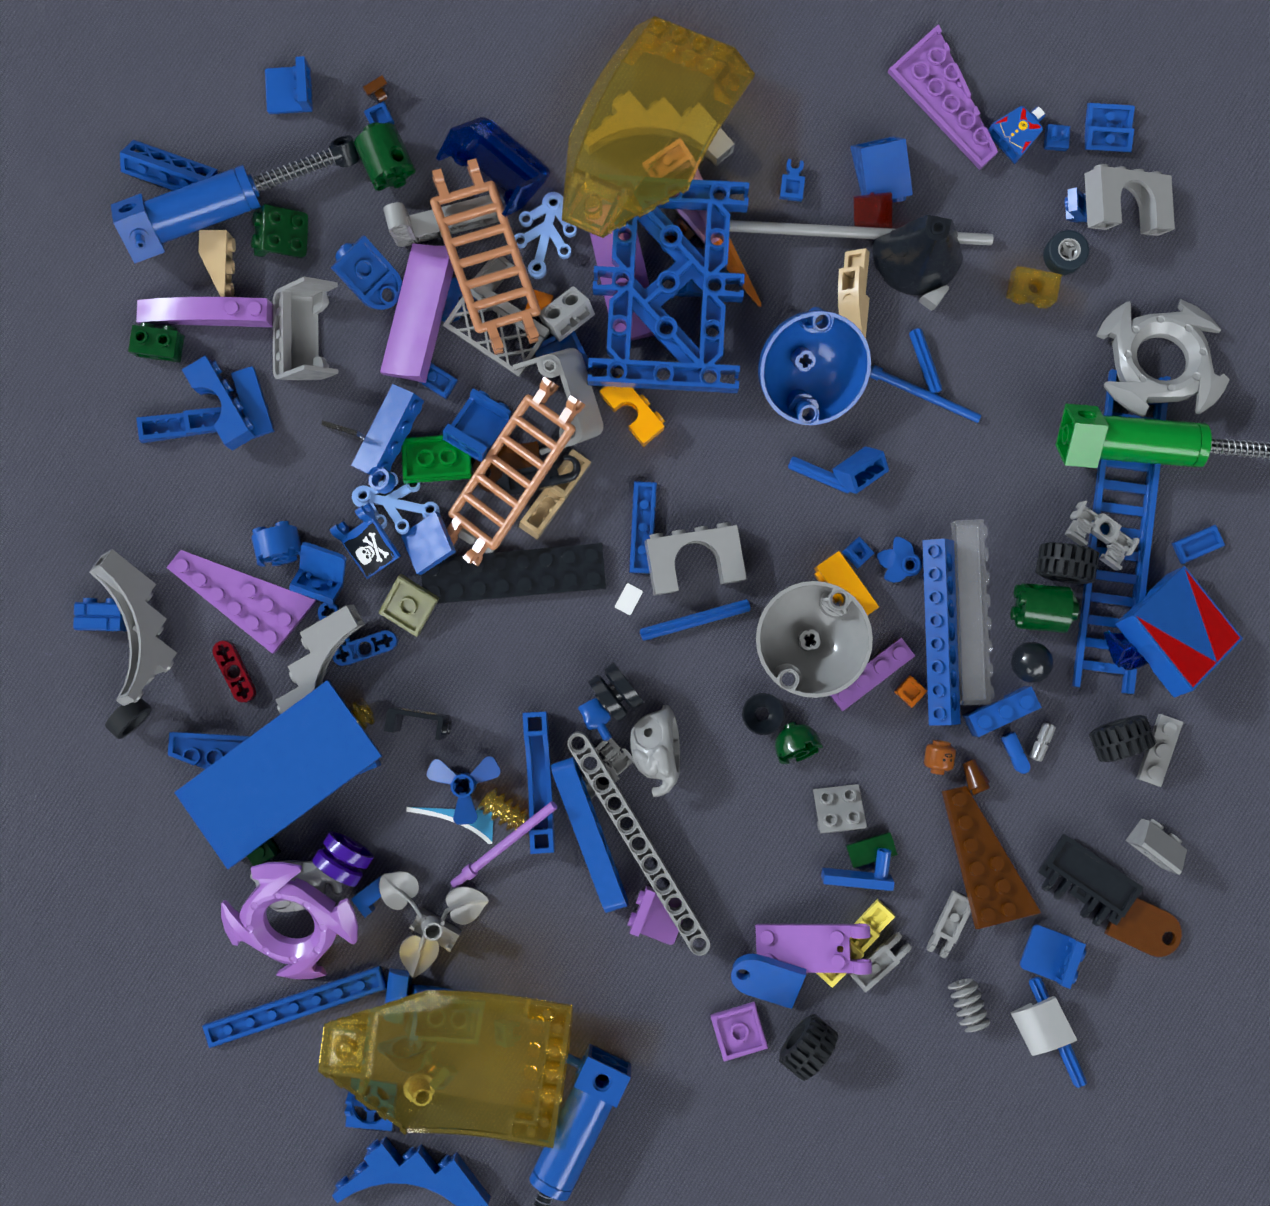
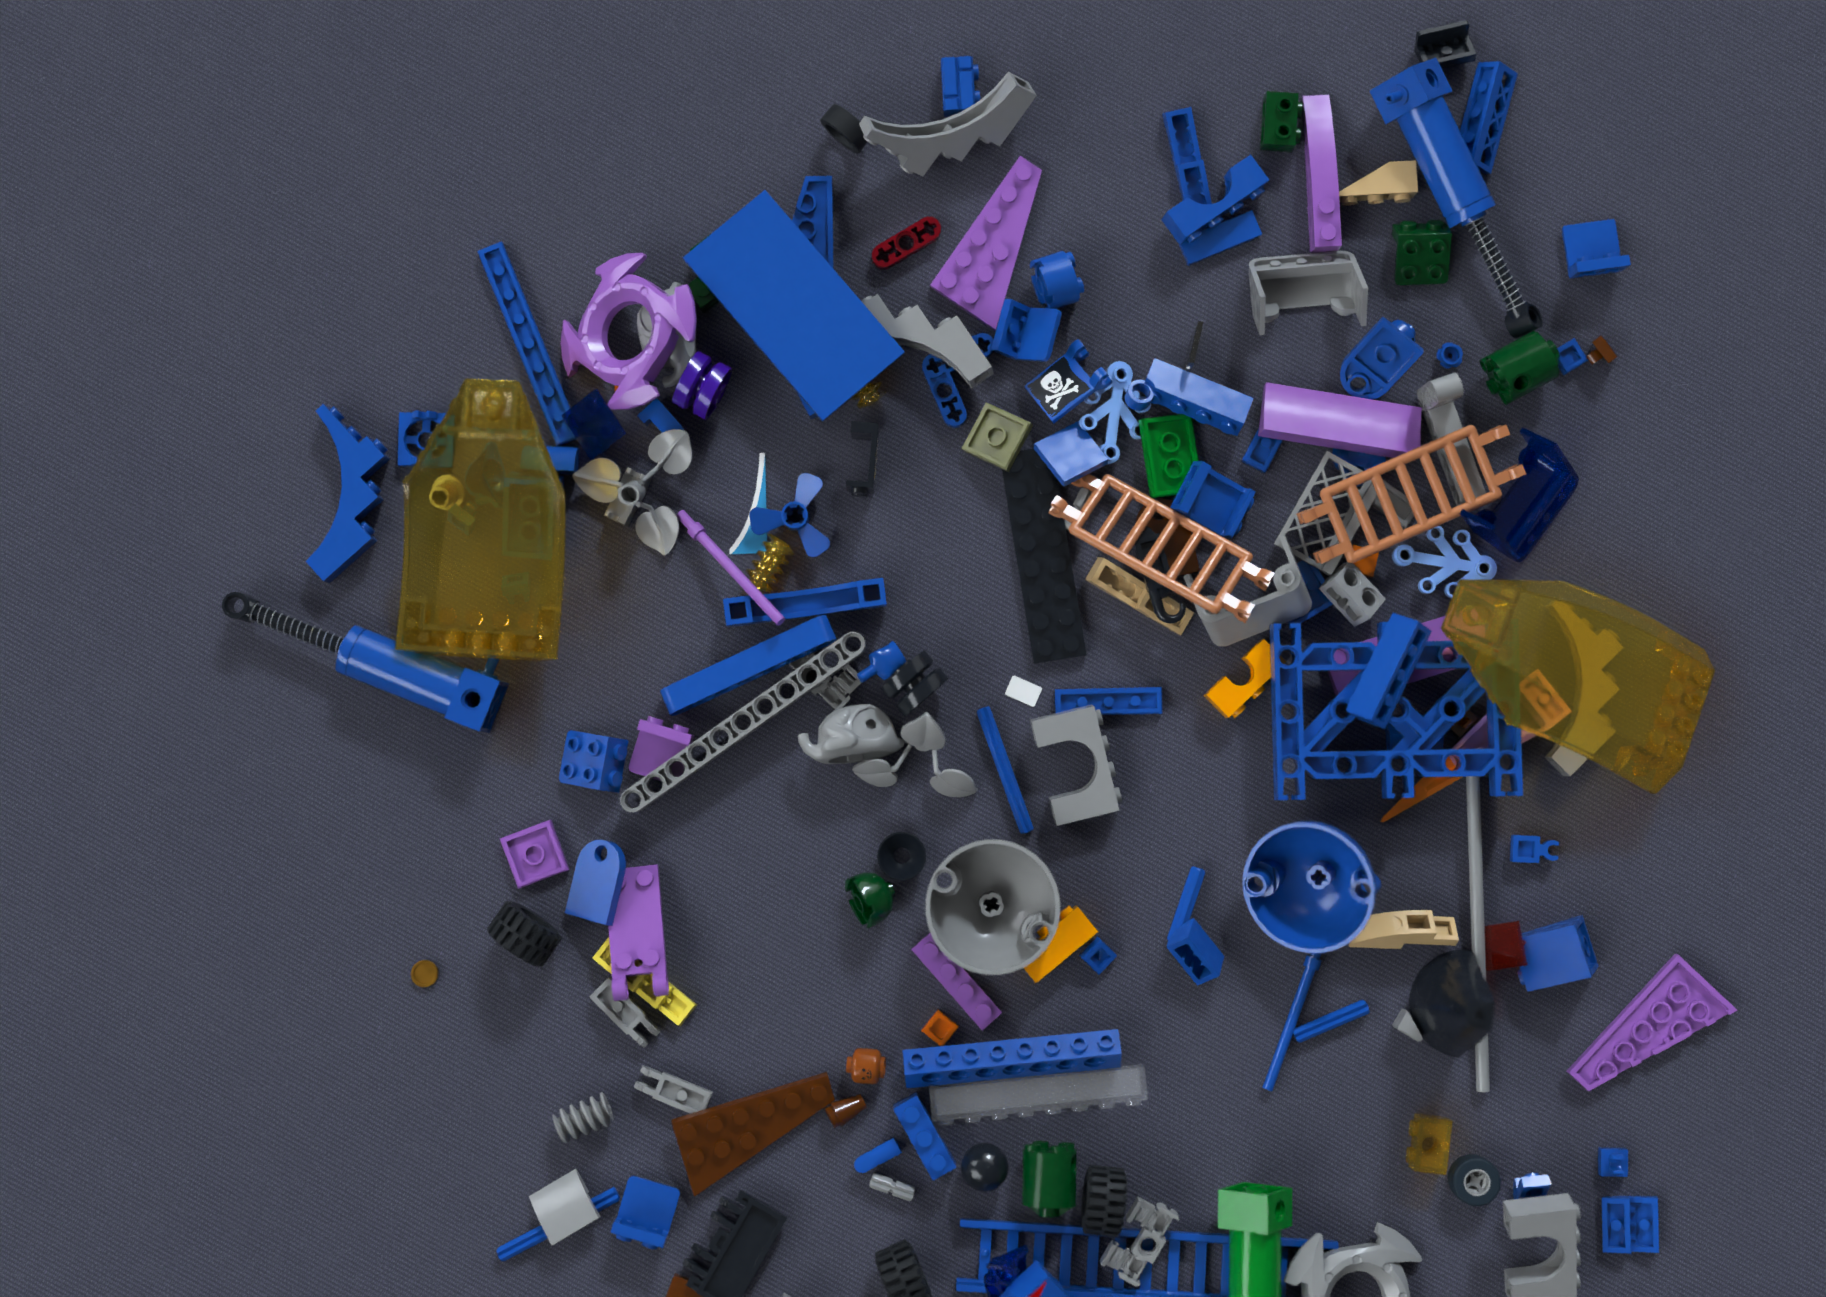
camera: 85 degrees right, 0 degrees up
(99, 196) = (1446, 43): none -> black bracket
(369, 956) = (593, 424): none -> clear blue hinge
(370, 210) = (1456, 353): none -> blue plate
(635, 285) = (1388, 670): none -> blue brick
(662, 686) = (925, 736): none -> light grey plant
(663, 974) = (593, 761): none -> blue bracket
(835, 1134) = (424, 973): none -> pearl gold piece
(839, 808) = (798, 953): light grey hinge -> none
(865, 851) = (752, 994): dark green tile -> none
(878, 880) = (718, 1002): blue piece -> none
(896, 559) = (1092, 1001): blue plate -> none
(1017, 131) = (1615, 1113): blue torso -> none

